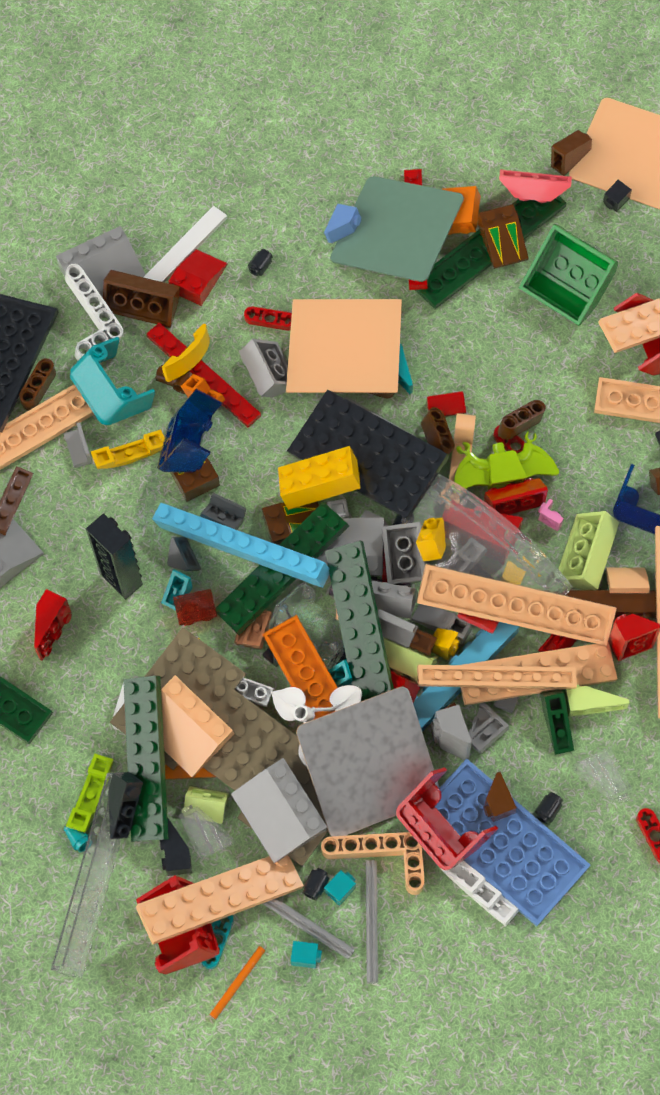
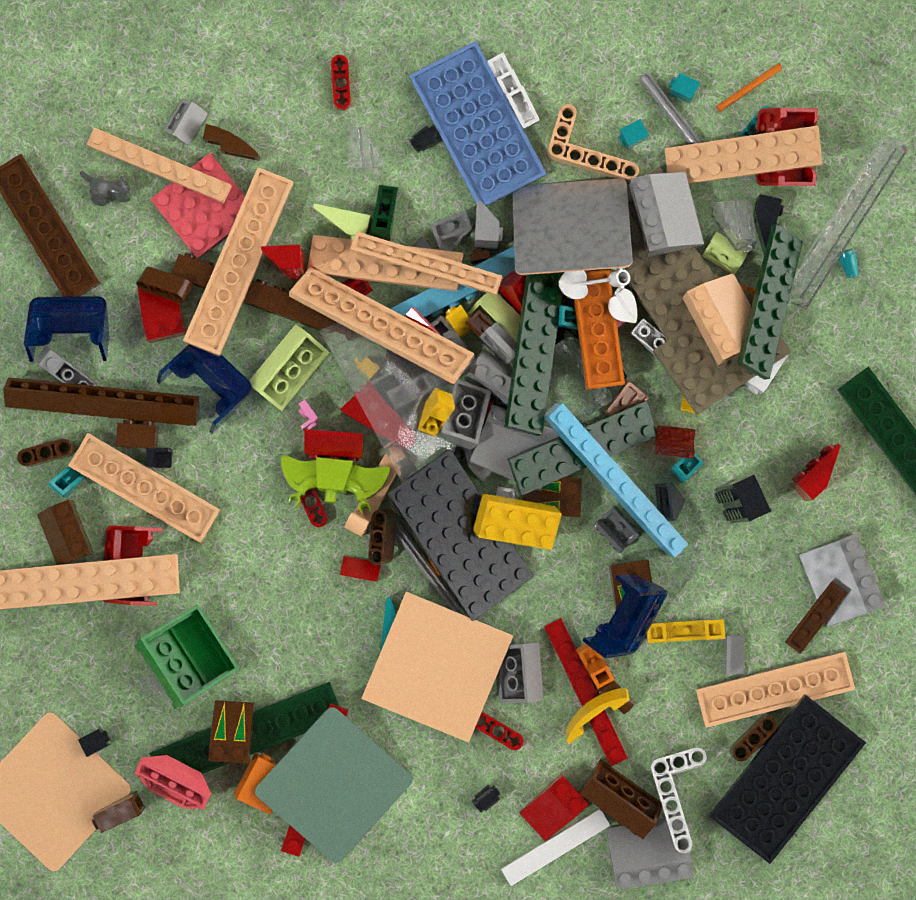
camera: 165 degrees left, 20 degrees up
(86, 806) = (826, 297): lime slope -> none
(98, 390) = (698, 704): teal windscreen -> none
(123, 800) = (802, 271): black slope -> none
(315, 883) = (653, 145): black brick -> none
(342, 223) = (386, 813): medium blue slope -> none
(371, 922) = (615, 98): light grey axle -> none
(432, 830) = (533, 146): red windscreen -> none
(499, 800) = (468, 156): reddish brown slope -> none
(521, 419) = (303, 522): reddish brown beam -> none
(627, 580) = (263, 323): light nougat slope -> none

